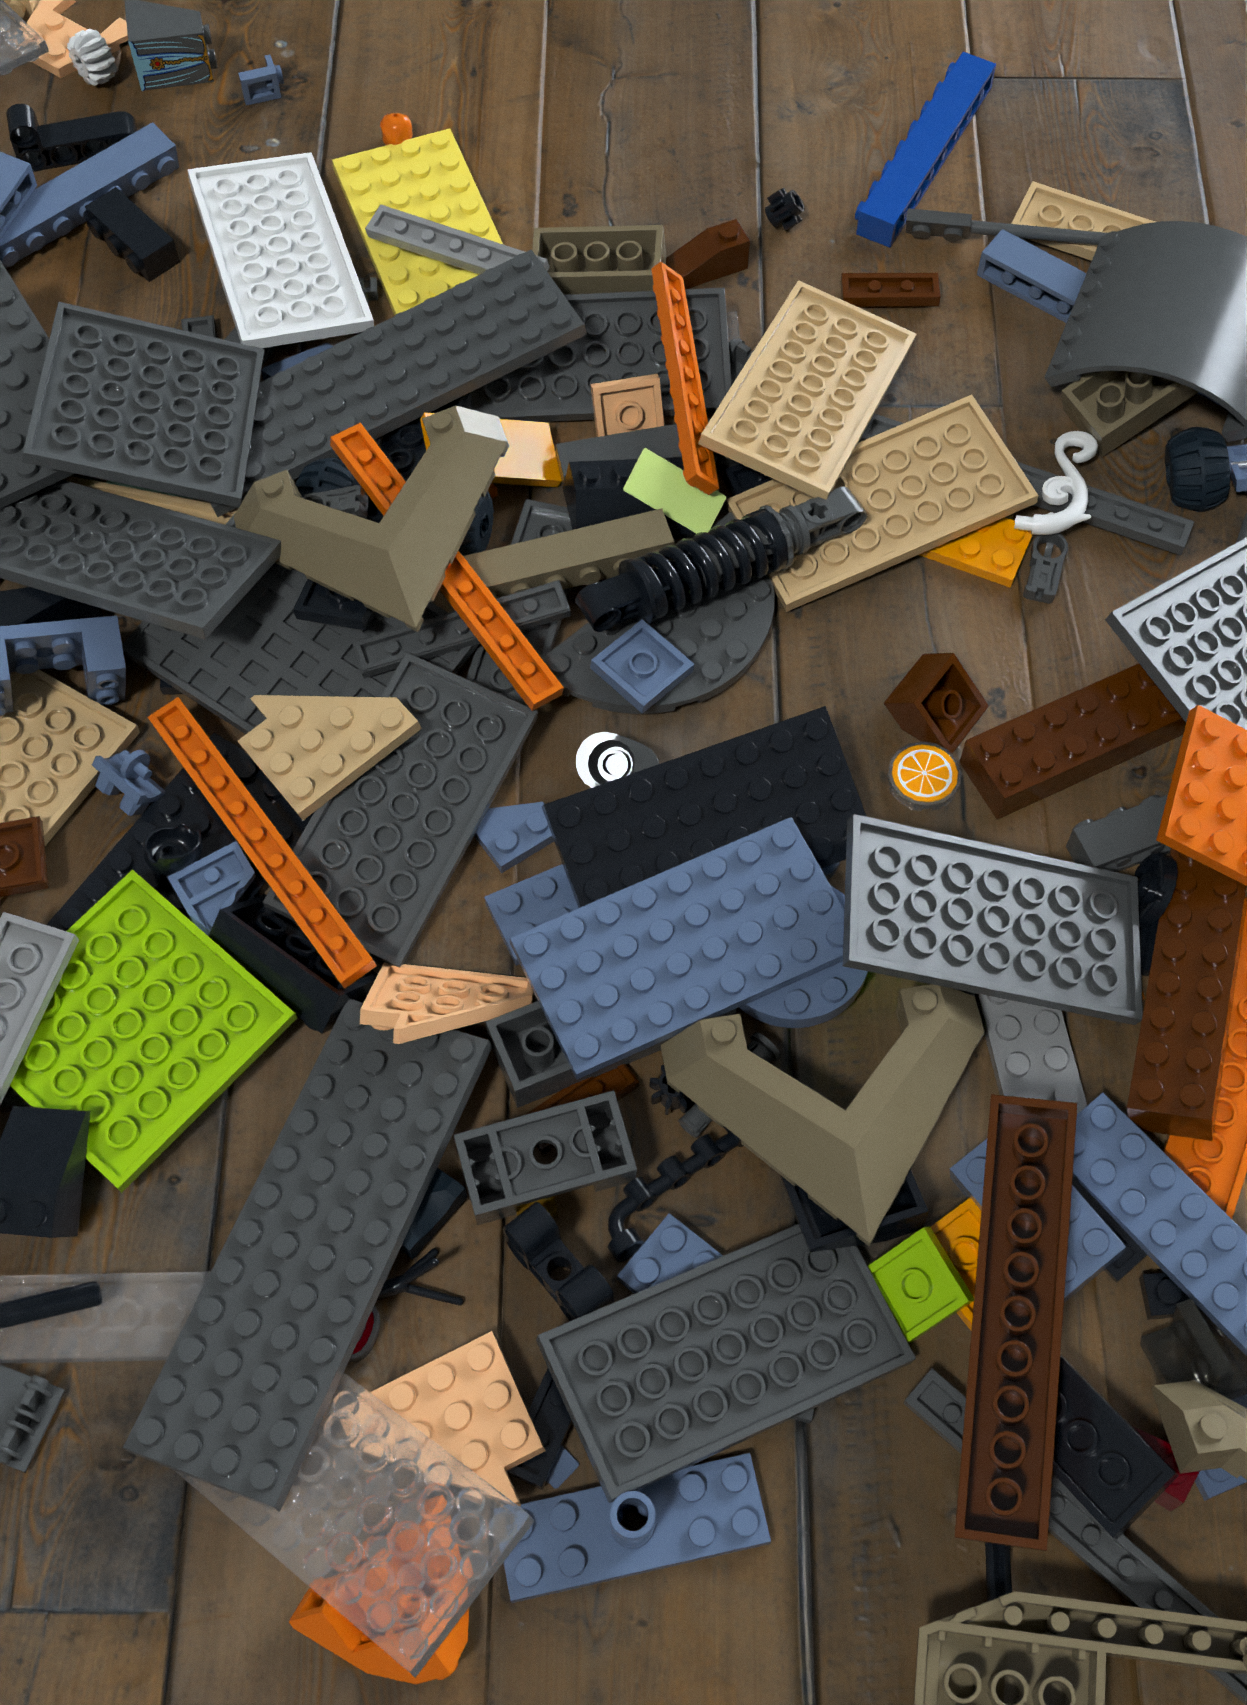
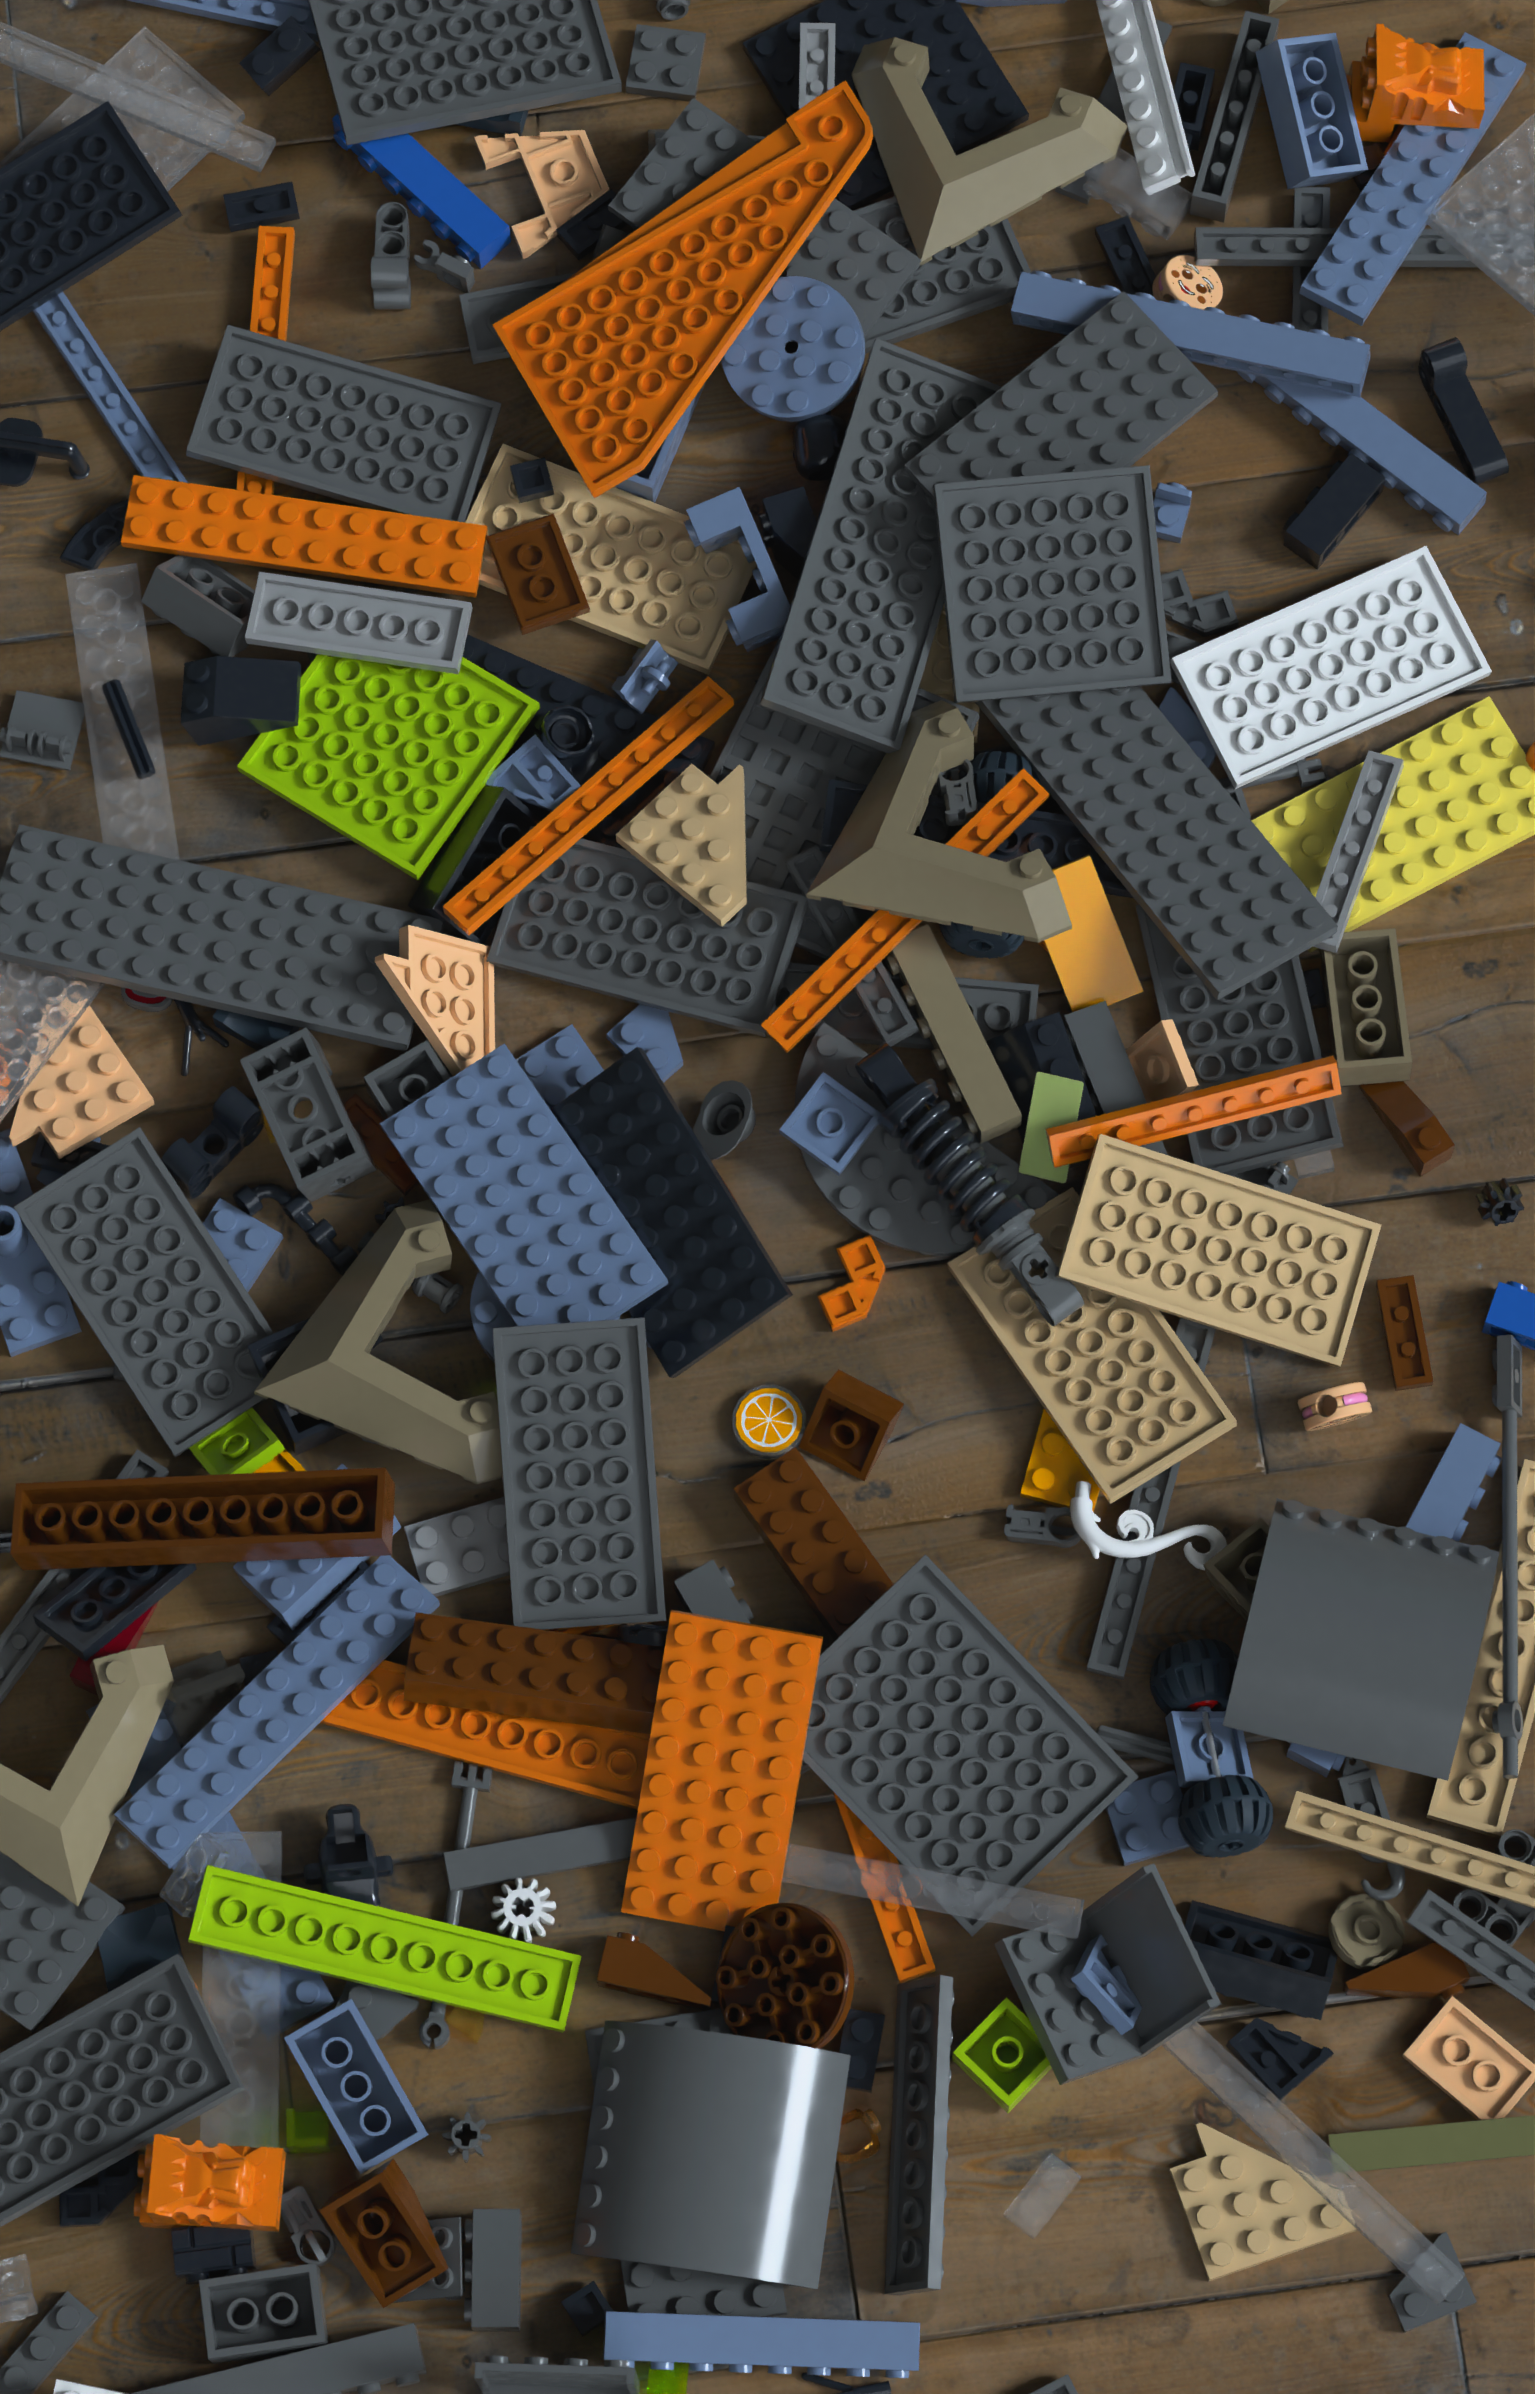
camera: 85 degrees right, 10 degrees up
(780, 679) = (853, 1300): none -> orange tile
(957, 335) = (1334, 1406): none -> light nougat head

